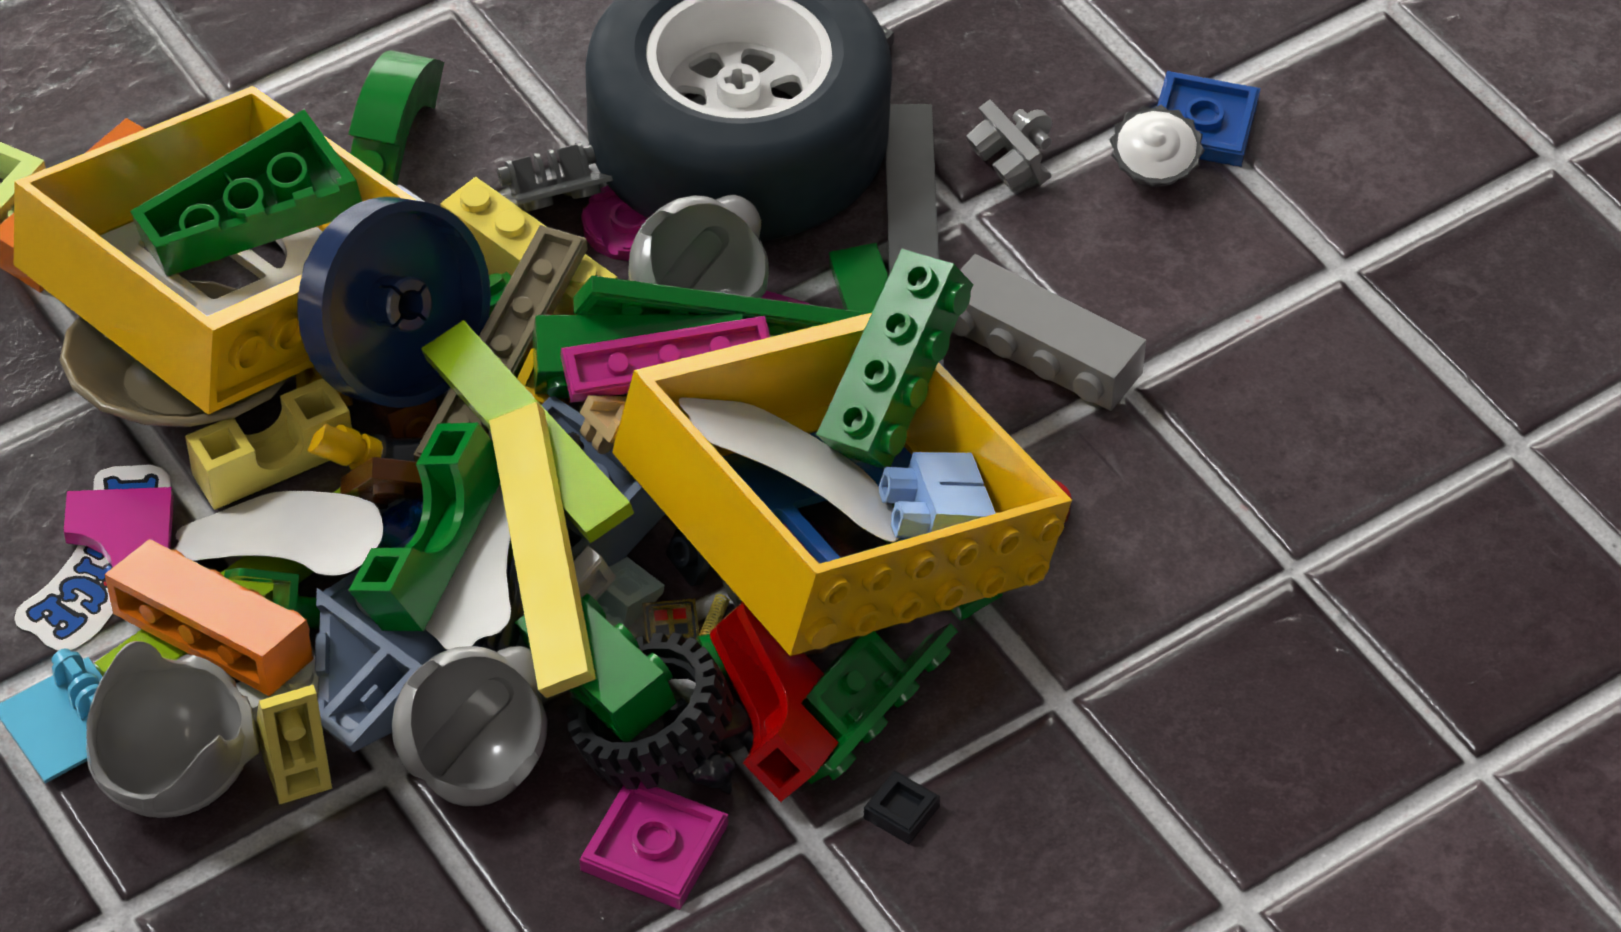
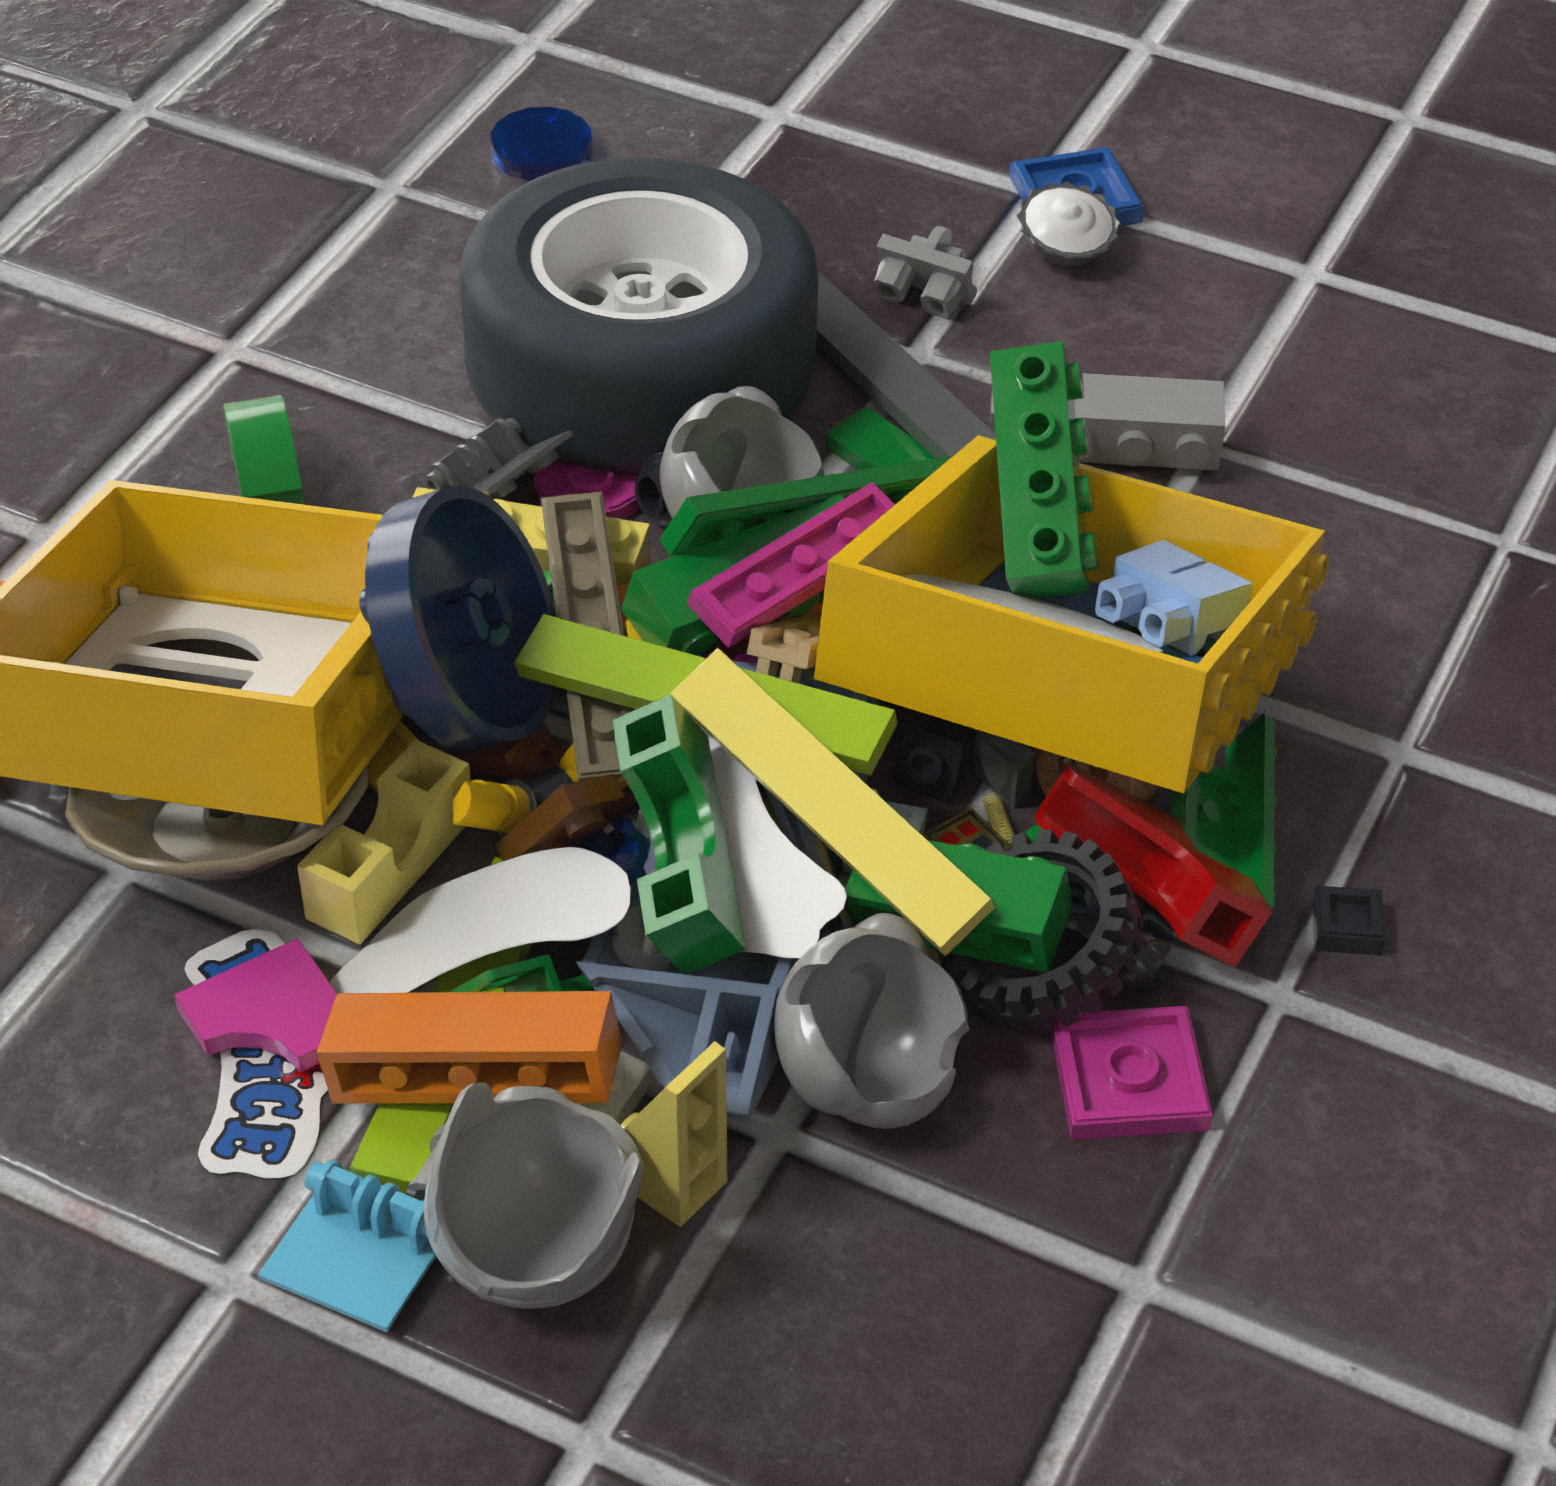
camera: 30 degrees left, 5 degrees down
(248, 198) = (212, 575): green wedge -> none

